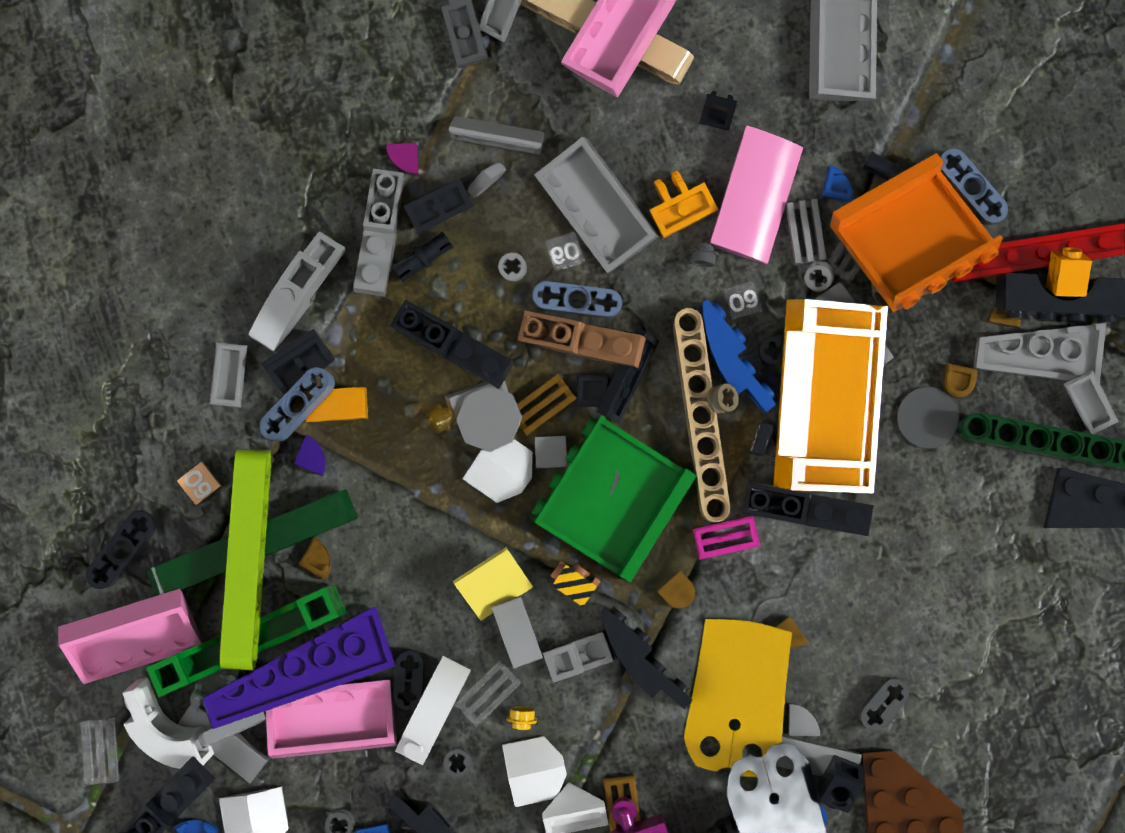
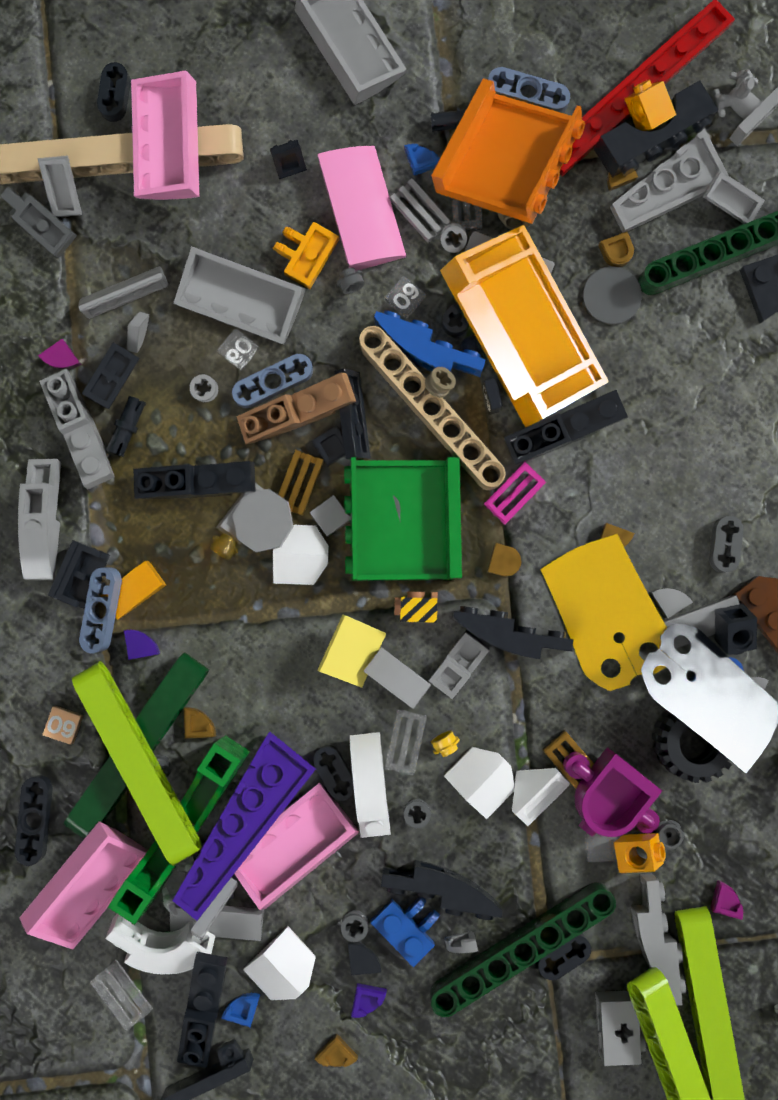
camera: 25 degrees left, 0 degrees up
(228, 374) = (29, 622): light grey tile -> none

